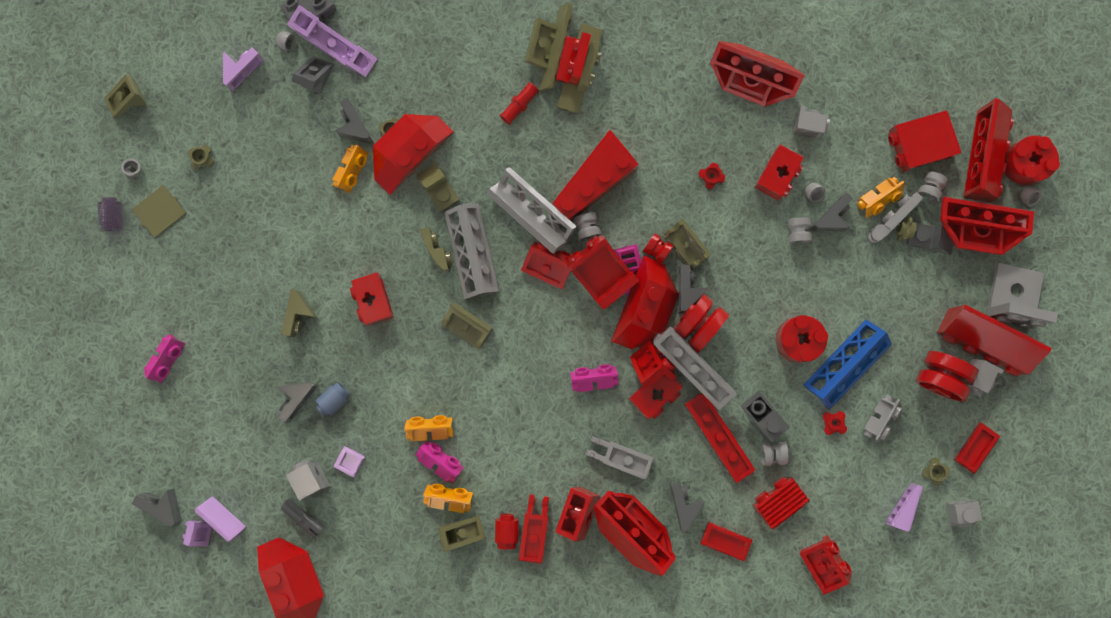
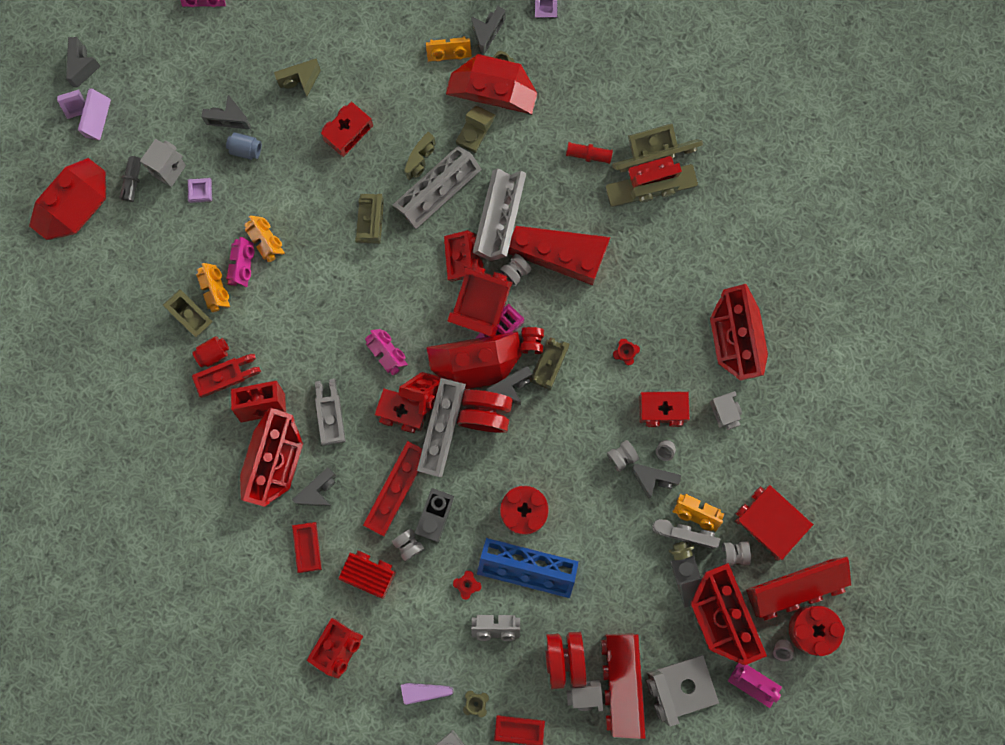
camera: 60 degrees right, 5 degrees down
(1046, 234) = (755, 684): none -> dark pink hinge

